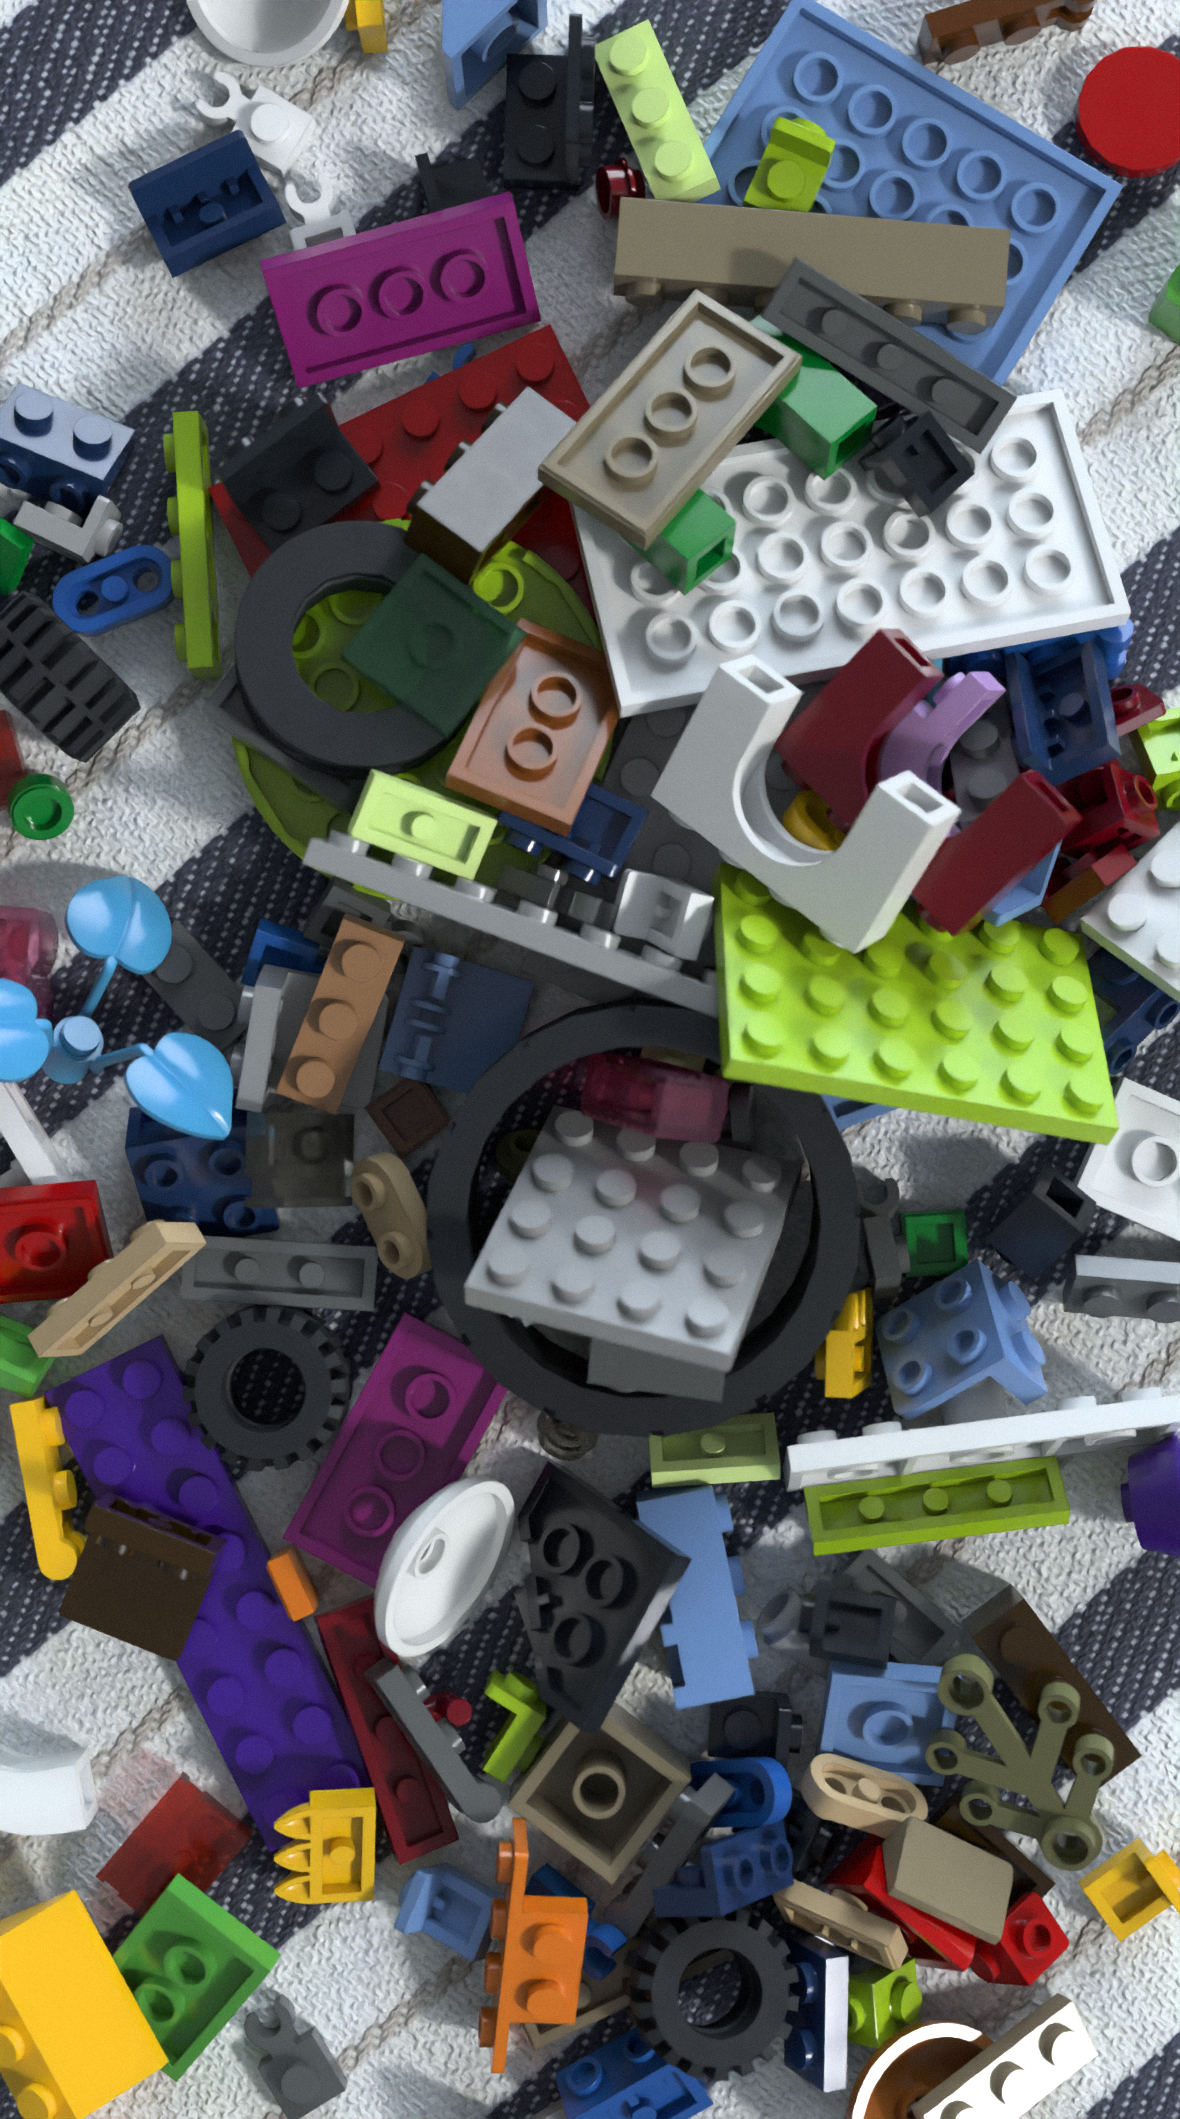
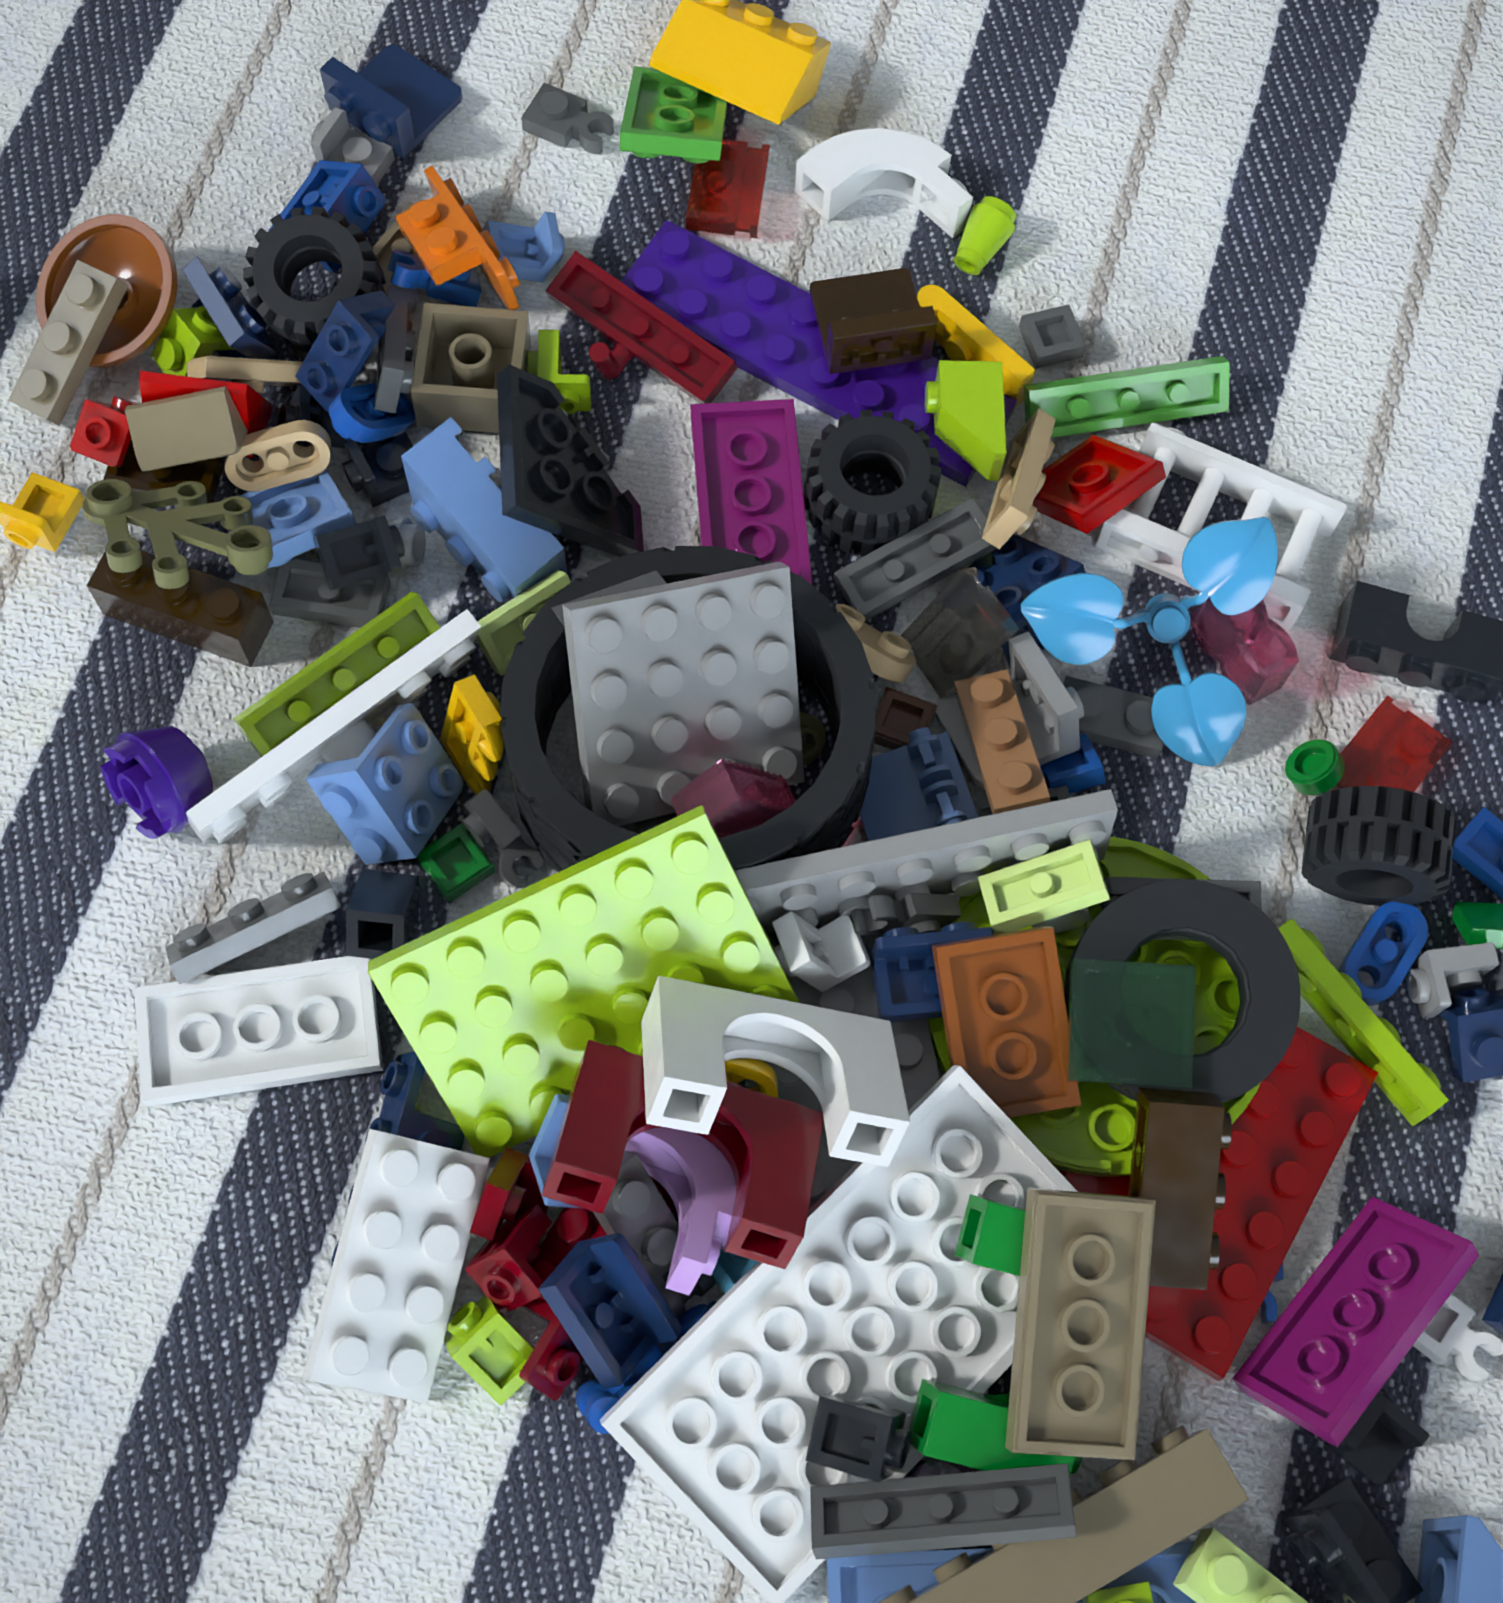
camera: 140 degrees right, 20 degrees down
(115, 1395) = (970, 412): none -> lime slope
(293, 1582) = (764, 376): orange tile -> none
(296, 473) = (1323, 1107): black bracket -> none
(330, 1848) = (630, 236): yellow plate -> none
(433, 1741) = (595, 323): dark grey plate -> none
(442, 1564) = (674, 430): white dish -> none
(617, 182) = (1250, 1532): dark red plate -> none

